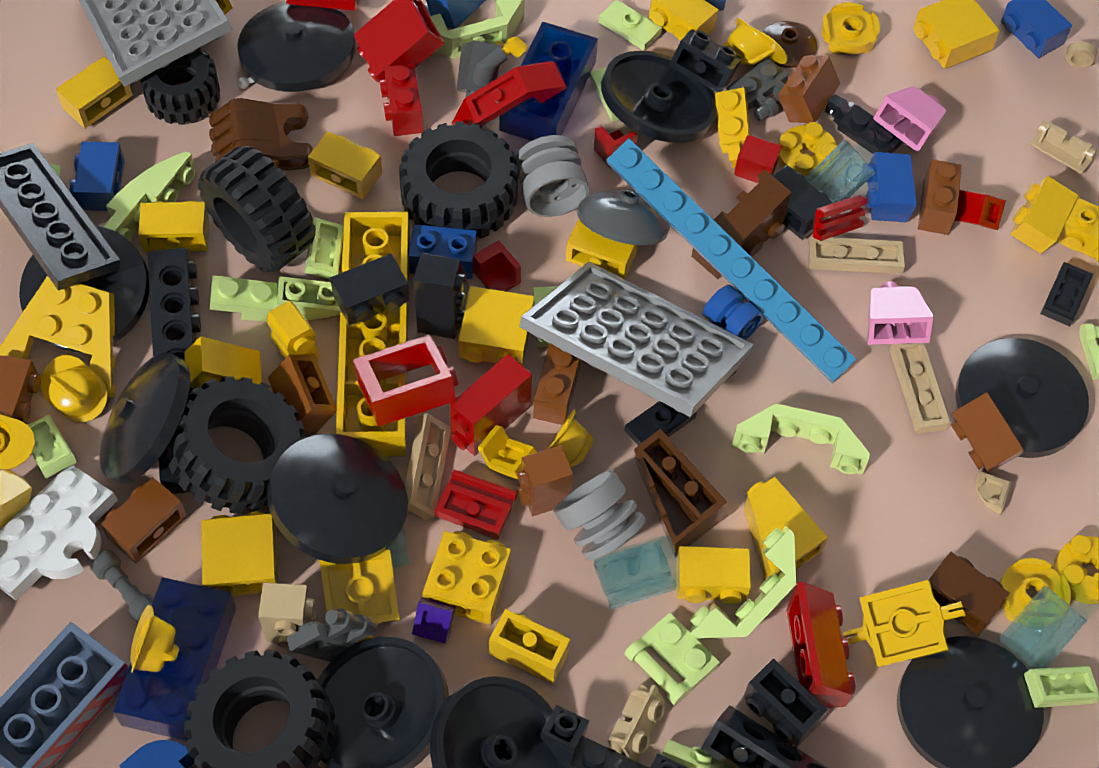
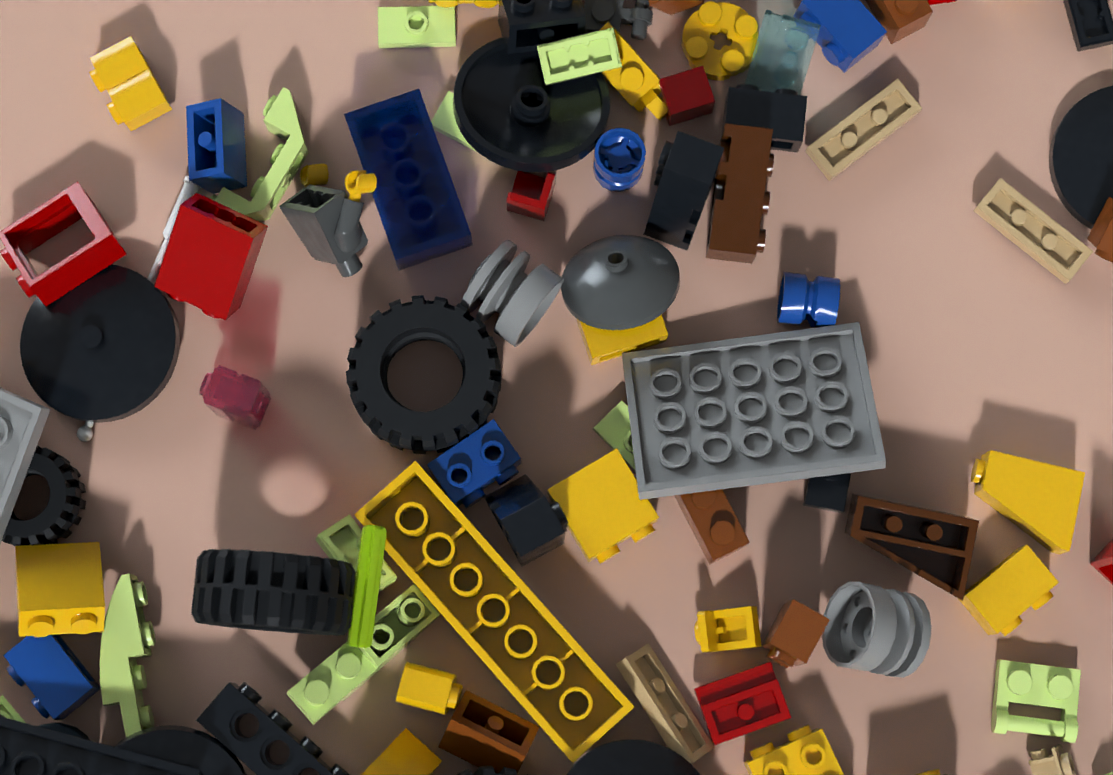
camera: 40 degrees left, 20 degrees up
(145, 130) = (59, 589): none -> yellow brick
(173, 226) = (187, 665): yellow brick -> none
(263, 128) = (172, 496): reddish brown piece -> none
(312, 250) = (367, 586): none -> lime axle
(341, 110) = (235, 396): none -> clear pink brick
(345, 164) = (290, 447): yellow brick -> none
(370, 289) = (473, 589): black brick -> none
(403, 98) = (276, 320): red brick -> none
(410, 398) = (625, 678): red window -> none
(492, 400) = (677, 599): red brick -> none
(497, 267) = (543, 438): red panel -> none
(510, 90) = (397, 242): red slope -> none
(574, 440) = (772, 578): yellow piece -> none
(634, 574) = (949, 646): clear light blue plate -> none
(685, 159) = (619, 159): none -> blue wheel
(710, 91) = (579, 56): none -> yellowish green plate
(714, 623) = (1056, 638): yellowish green slope -> none
(715, 179) = (683, 184): none -> black wedge
(731, 261) = (760, 247): dark azure plate -> none
(839, 222) = (821, 104): red tile -> none
(847, 453) = (1018, 358): yellowish green slope -> none
(898, 316) = (959, 172): bright pink torso -> none

